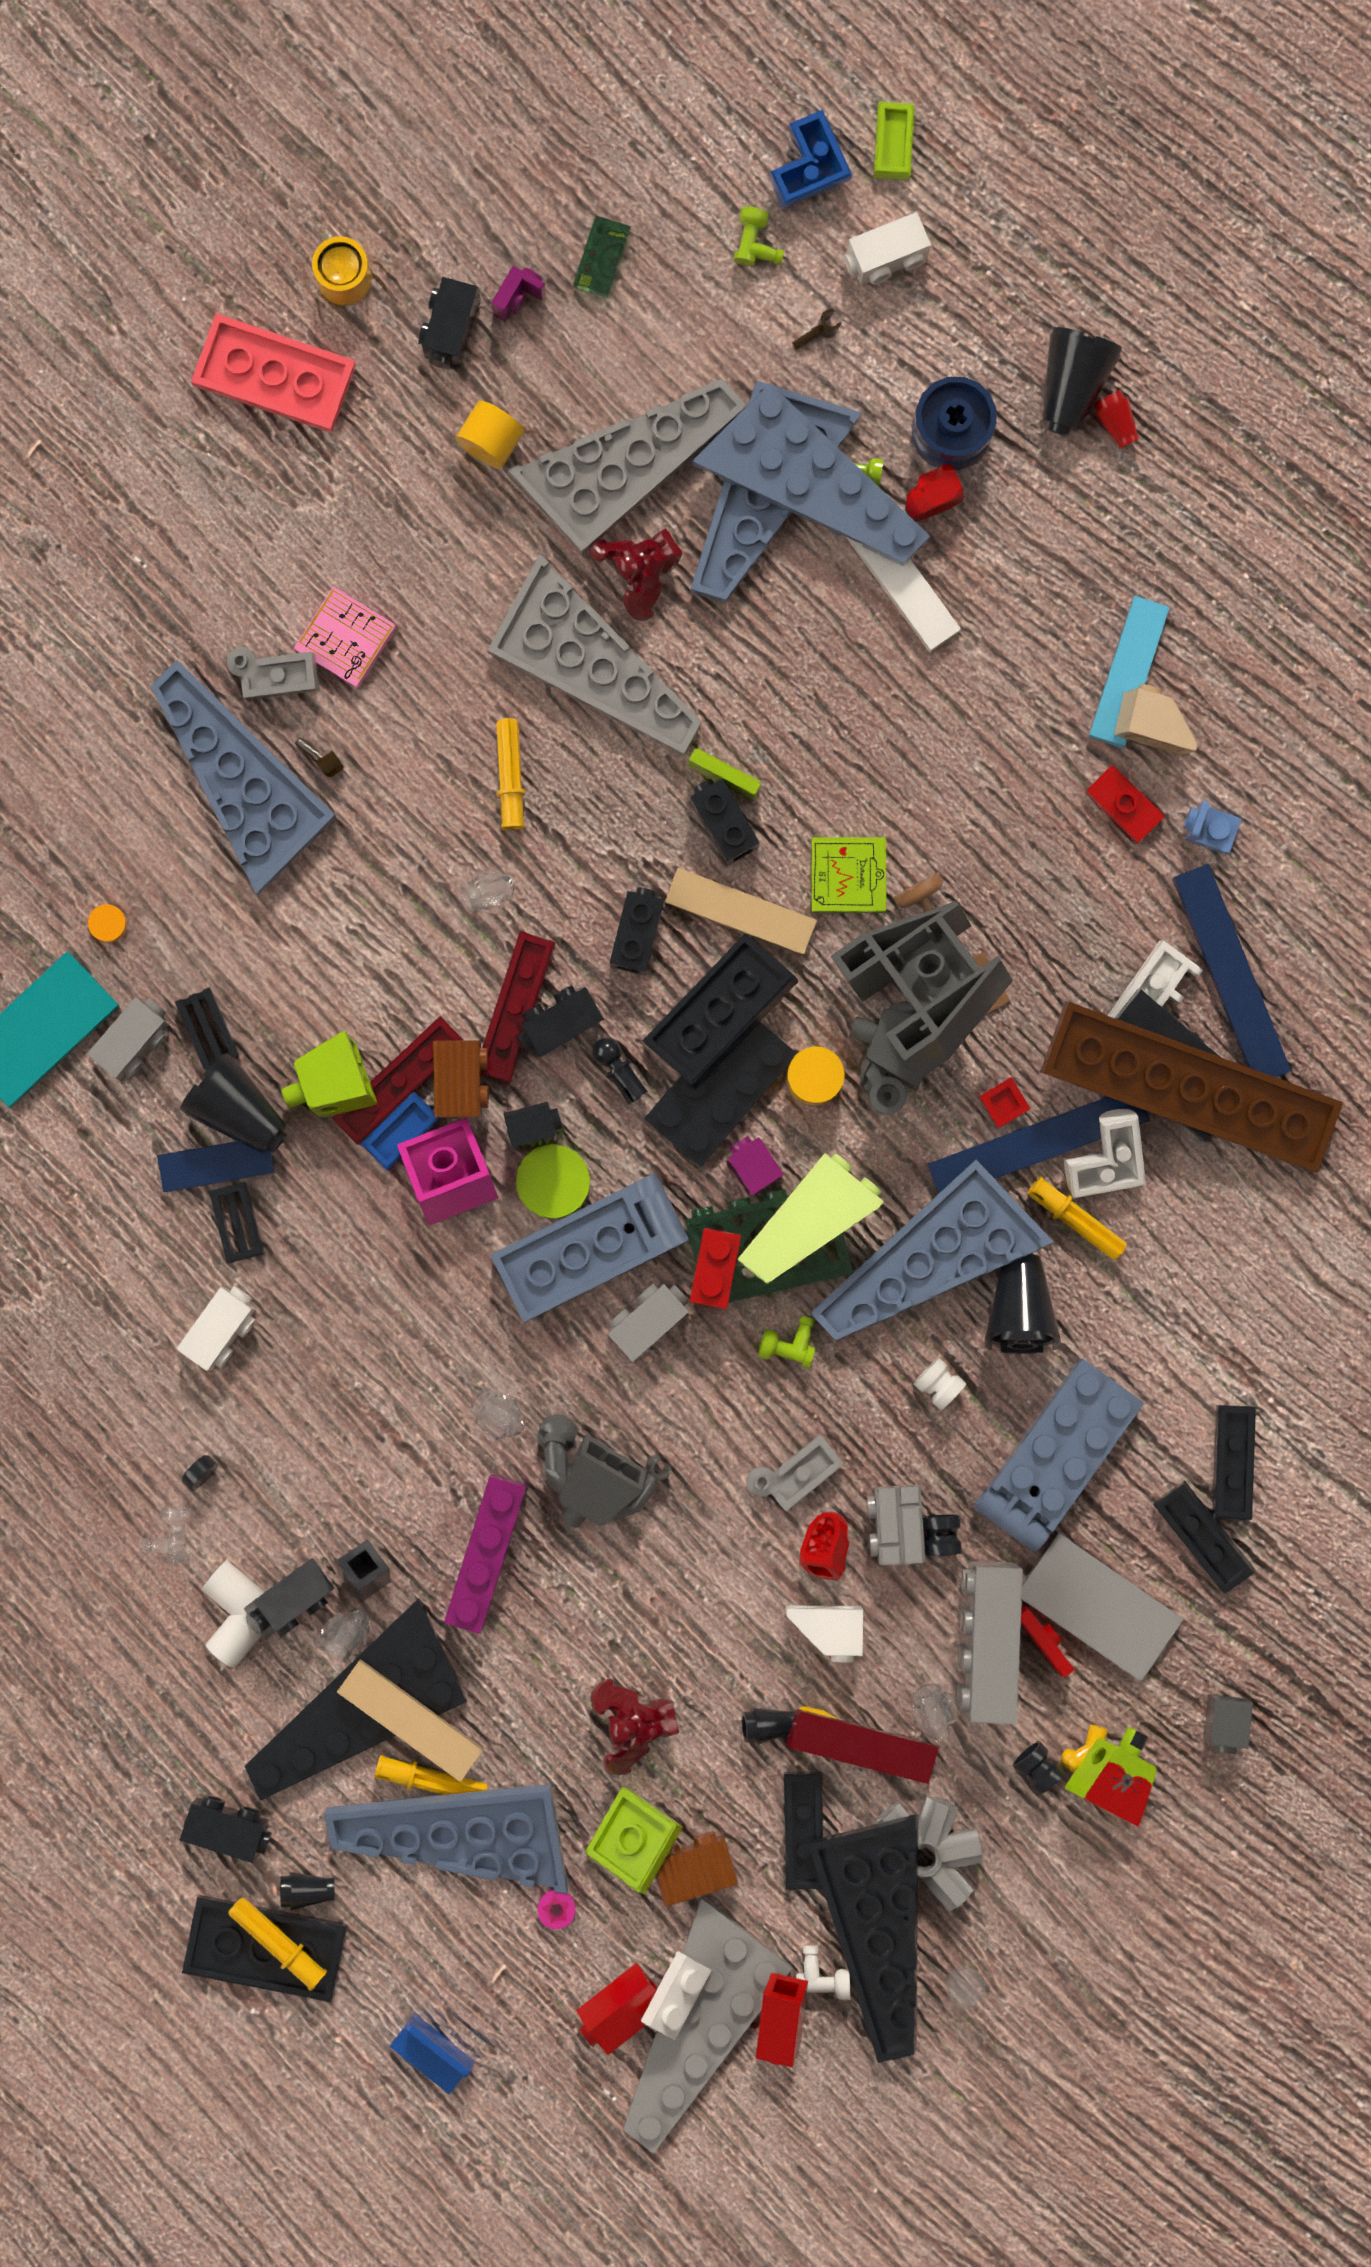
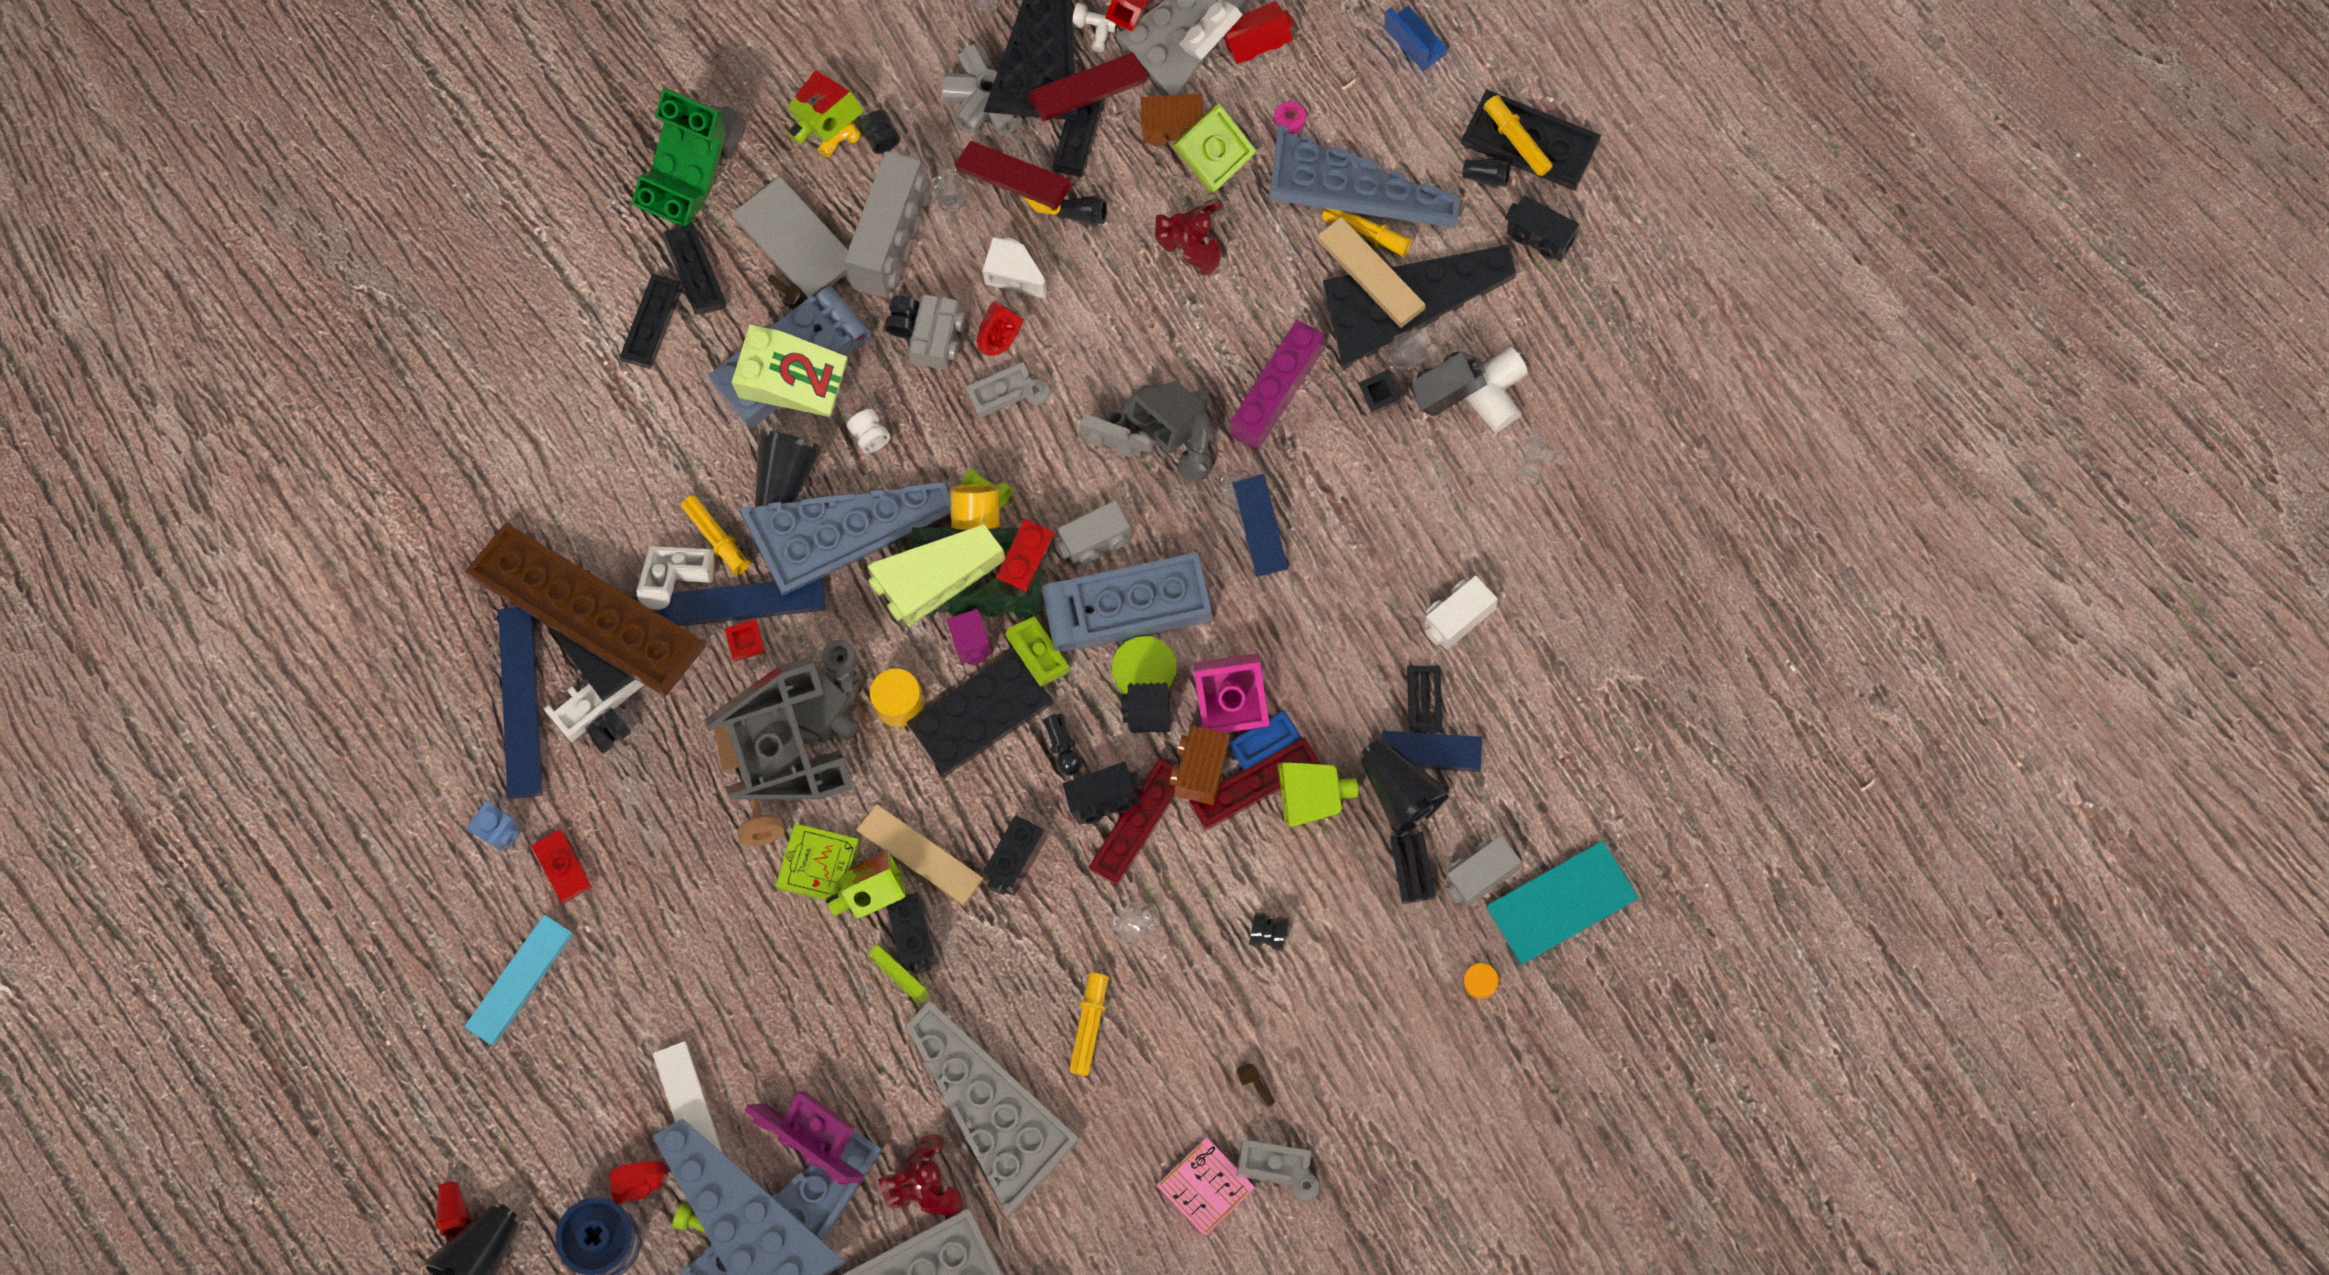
camera: 155 degrees left, 15 degrees down
(199, 1472) = (1501, 502): black tile -> none
(251, 791) = (1324, 1065): sand blue wing -> none
(342, 918) = (1269, 931): none -> black wheel
(463, 1374) = (1259, 525): none -> dark blue tile
(643, 1441) = (1103, 432): none -> light grey hinge
(675, 1169) = (1037, 651): none -> lime plate
(720, 1011) = (961, 771): black tile -> none
(764, 580) = (813, 1132): none -> magenta bracket
(780, 855) = (869, 887): none -> lime torso
(789, 1314) = (974, 506): none -> yellow piece
(804, 1883) = (1088, 87): none -> dark red tile
(1046, 1420) = (788, 372): none -> yellowish green slope
(1046, 1641) = (843, 220): red plate -> none
(1078, 1531) = (792, 294): none -> dark brown hand
(1122, 962) = (613, 724): none -> black wheel
(1154, 721) = (512, 925): tan slope -> none
(1261, 1663) = (683, 159): none -> green slope

